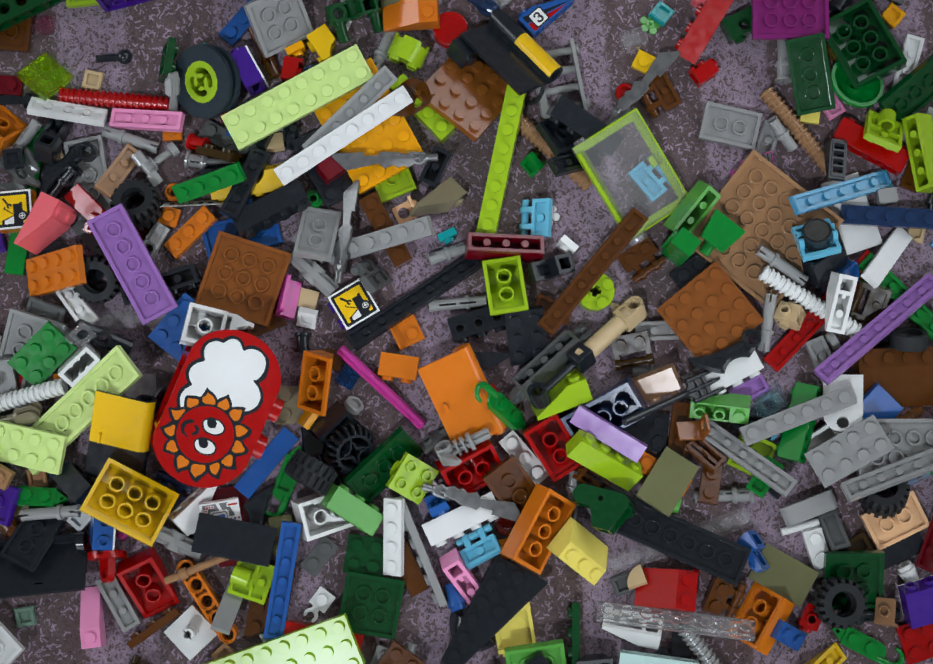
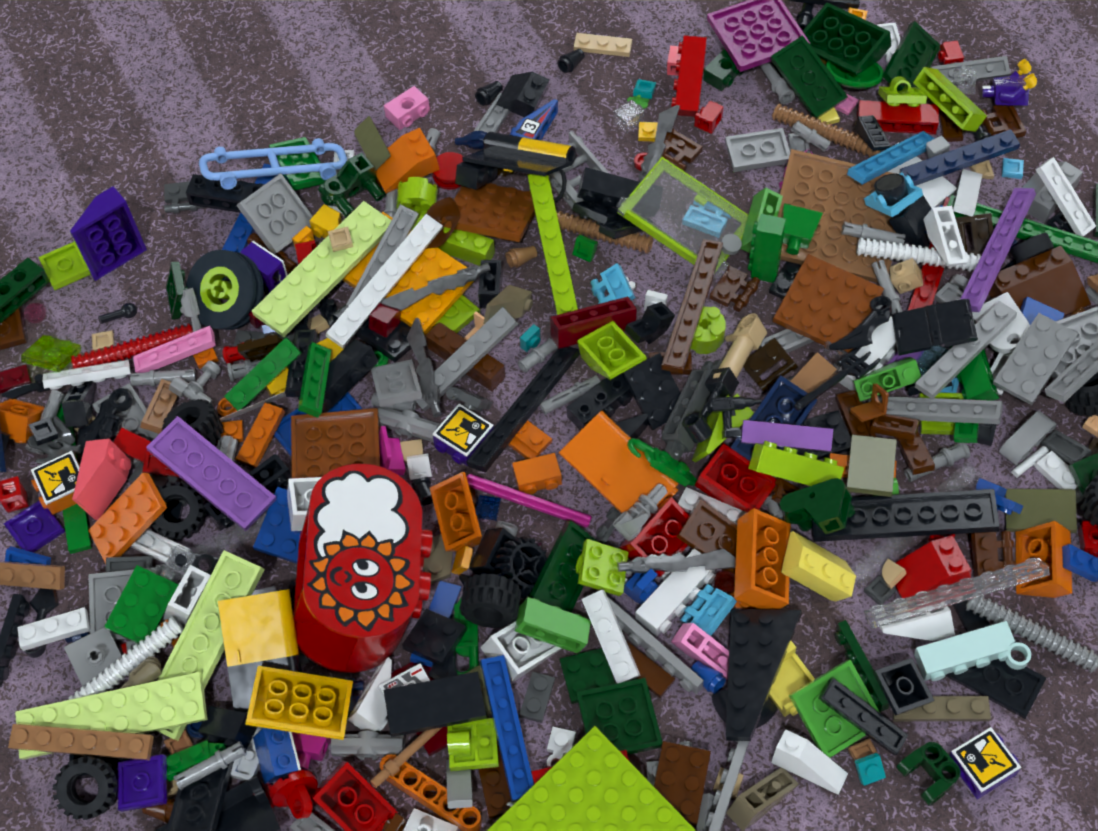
camera: 20 degrees left, 25 degrees down
(247, 211) = (314, 380): none -> green plate
(259, 480) = (434, 637): none -> black plate
(319, 78) = (340, 239): none -> tan tile
(470, 148) = (518, 256): none -> medium nougat cone
(570, 390) = (728, 406): none -> black piece
(657, 218) = (731, 244): none -> light grey tile
(782, 383) = (934, 325): none -> black piece

